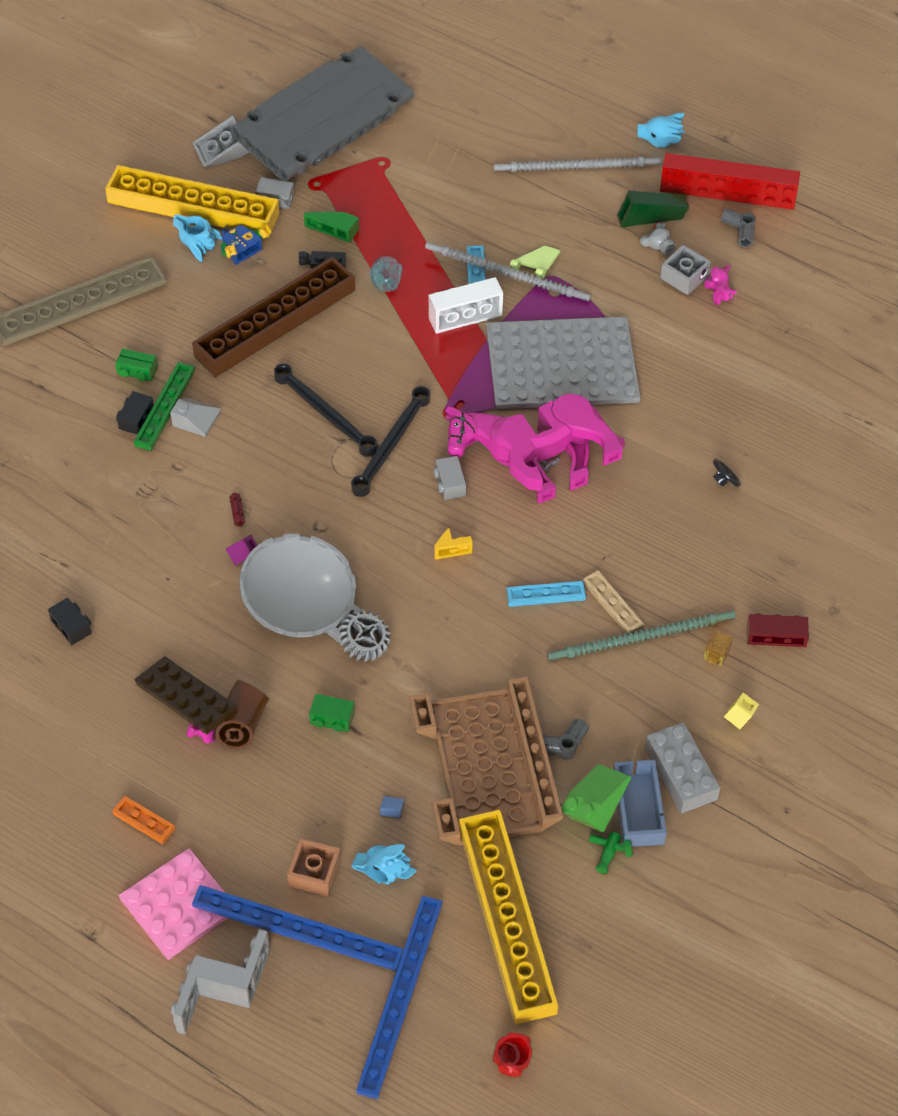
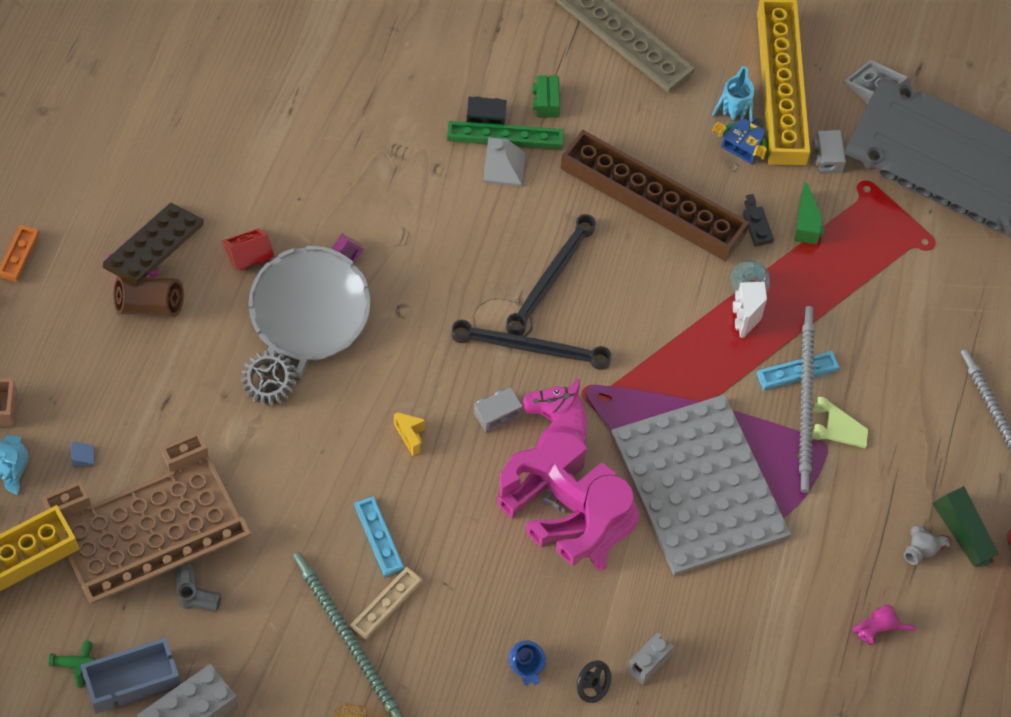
camera: 70 degrees right, 5 degrees up
(70, 621) = (220, 132): black brick -> none
(212, 625) = (248, 249): none -> red slope
(237, 509) = (397, 232): dark red axle -> none
(332, 713) = (173, 372): green brick -> none
(413, 280) = (749, 306): none -> white slope
(465, 305) = (734, 365): white brick -> none
(596, 797) = (120, 629): bright green slope -> none
(685, 269) = (881, 579): light grey brick -> none
(696, 512) = (527, 661): none -> blue hat
(715, 432) = (650, 659): none -> light grey brick
(745, 224) = (976, 636): dark grey piece -> none

